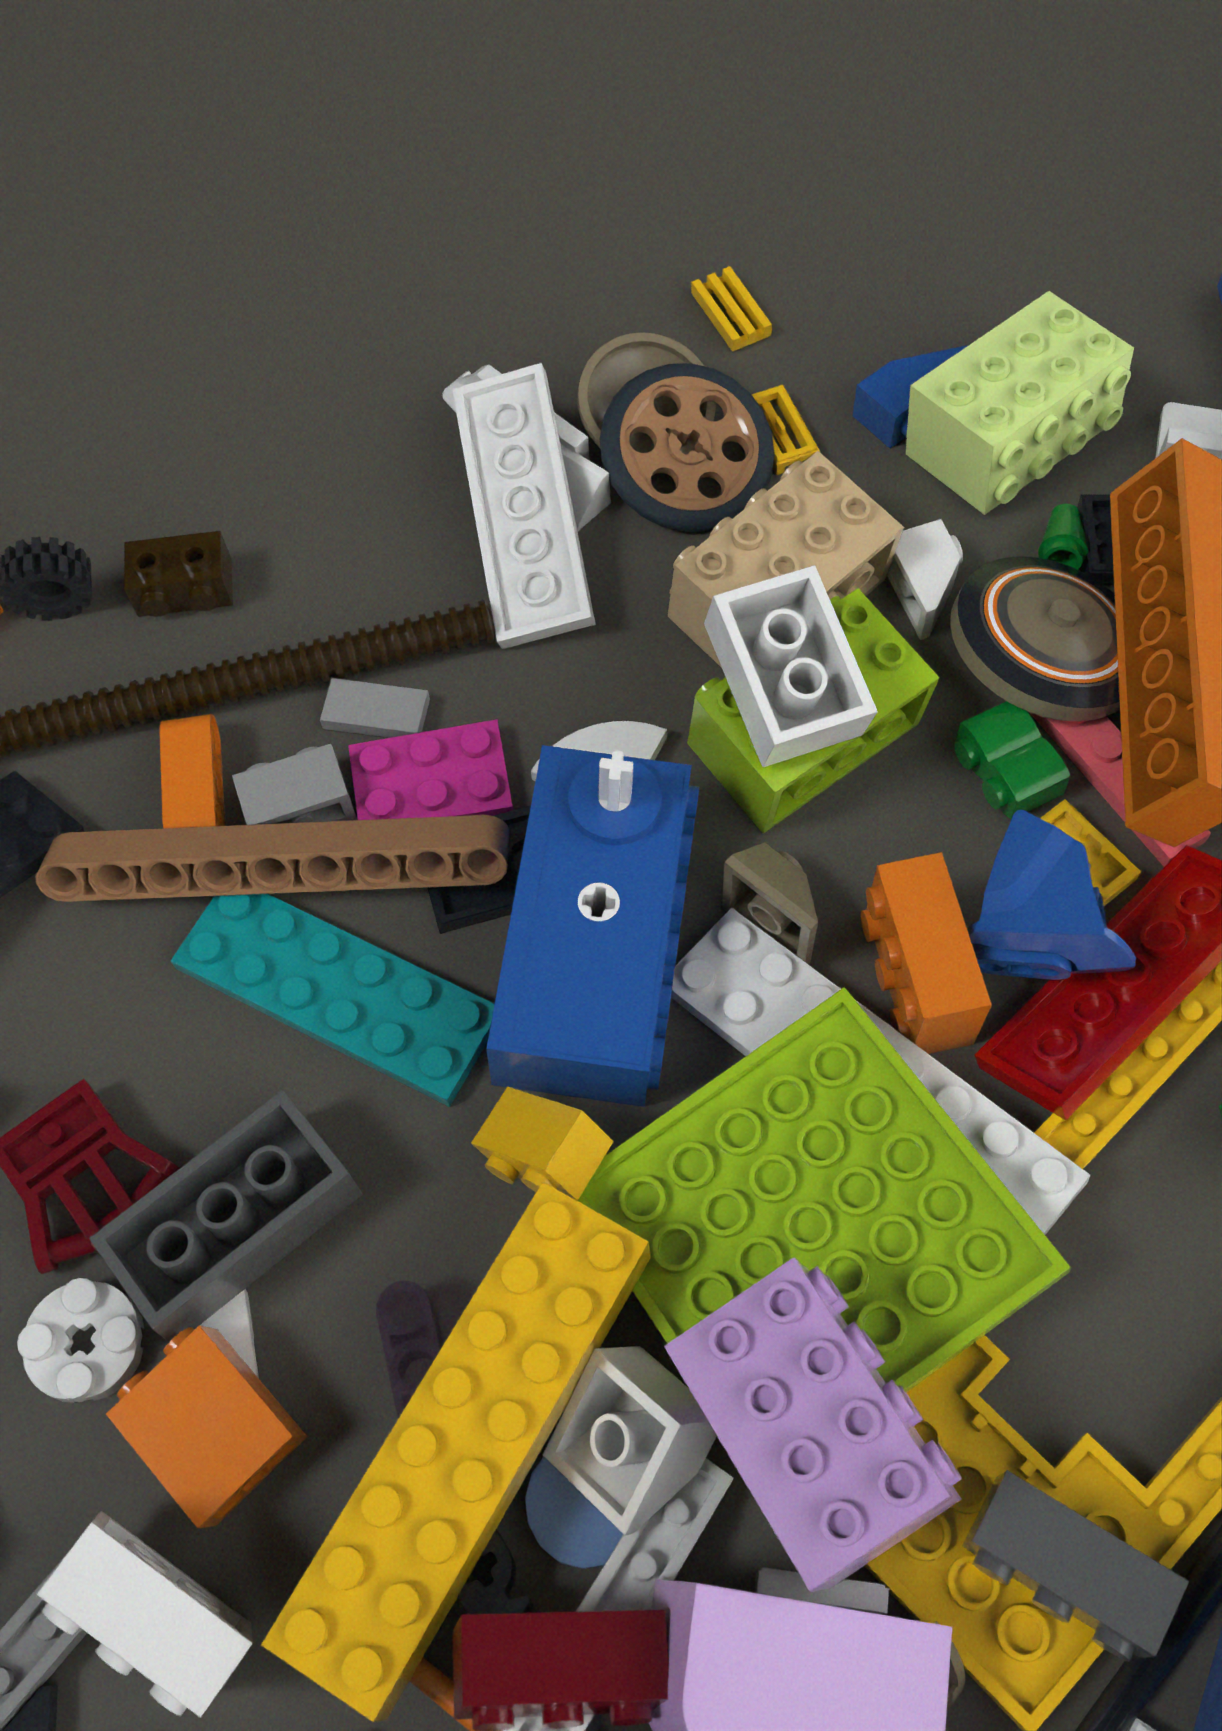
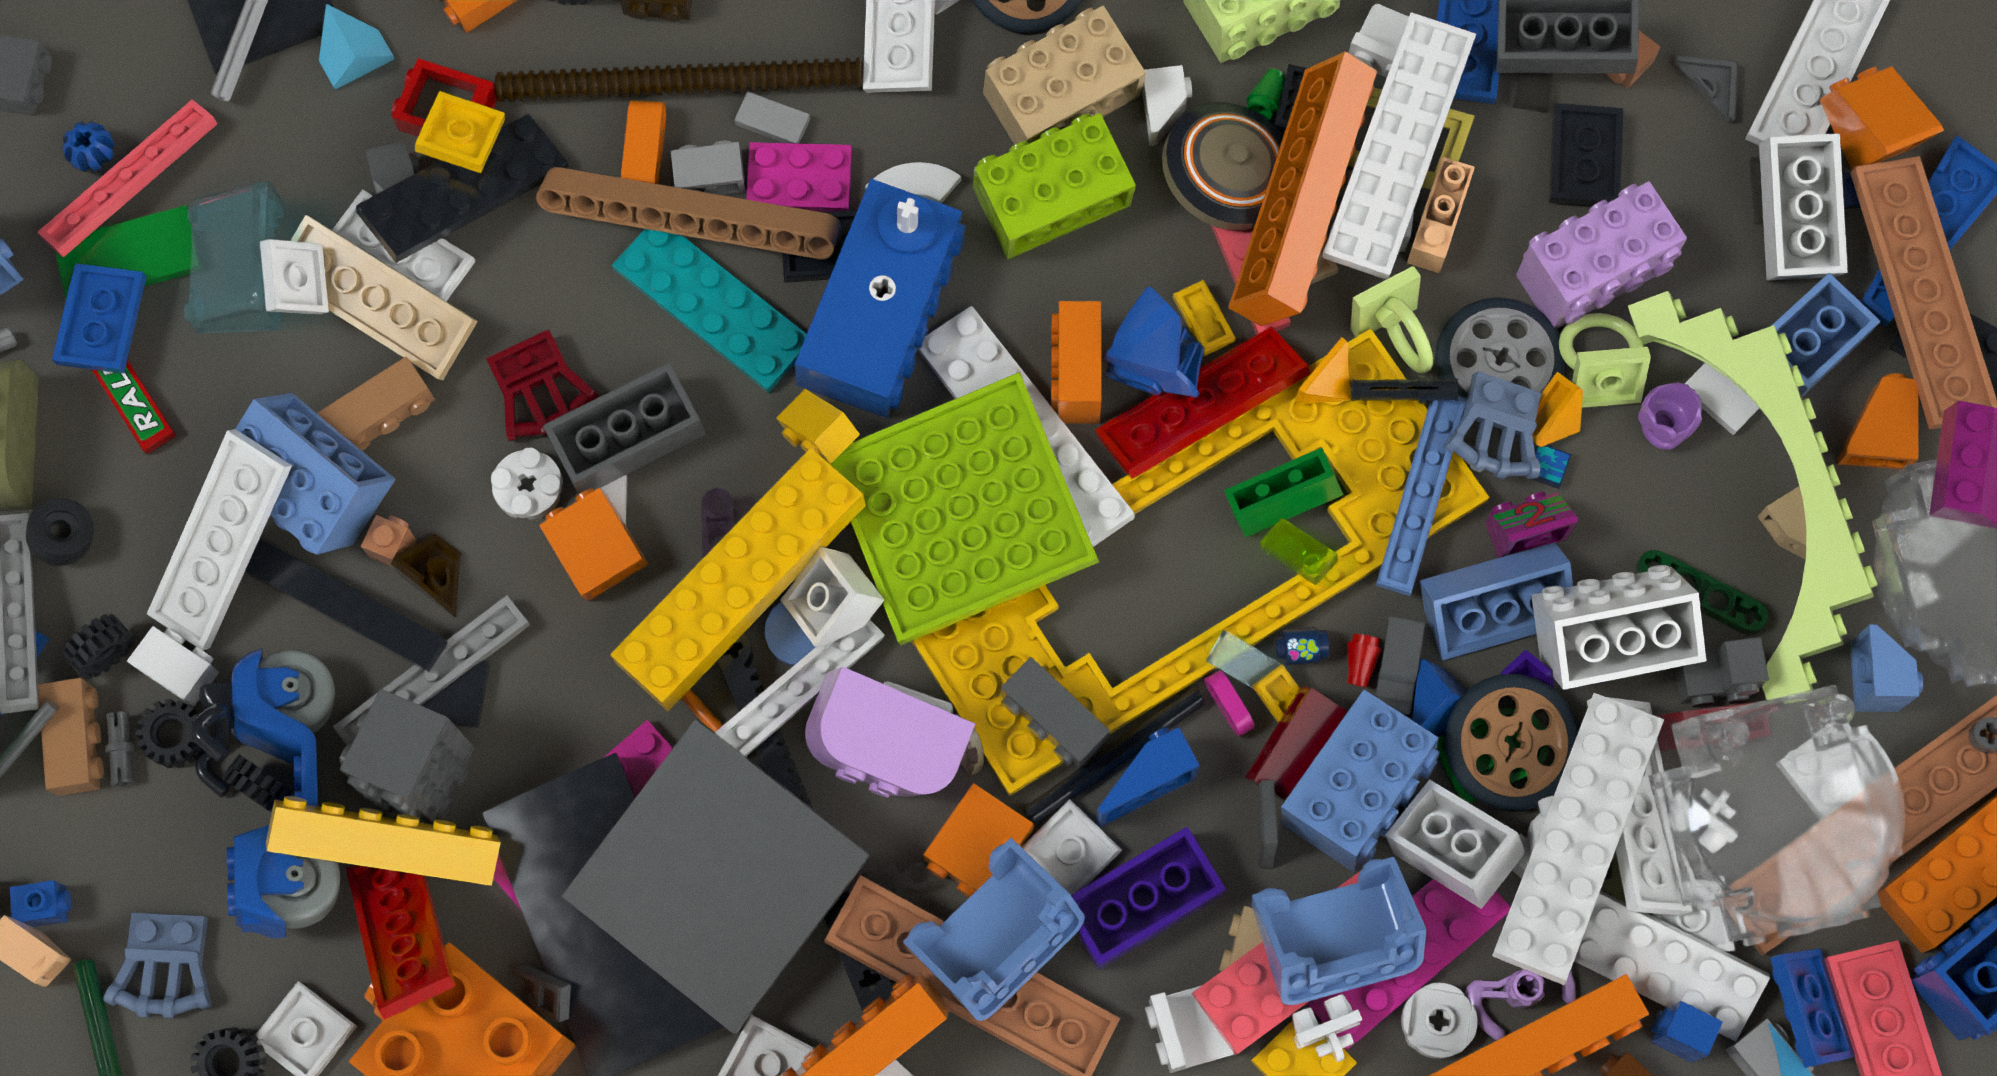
camera: 10 degrees right, 10 degrees up
(146, 1616) = (548, 630): white brick -> none
(560, 1667) = (764, 696): dark red brick -> none
(773, 895) = (997, 303): dark tan slope -> none
(789, 666) = (1033, 163): white brick -> none
(814, 1423) = (928, 605): lavender brick -> none
(1011, 758) = (1178, 245): green brick -> none

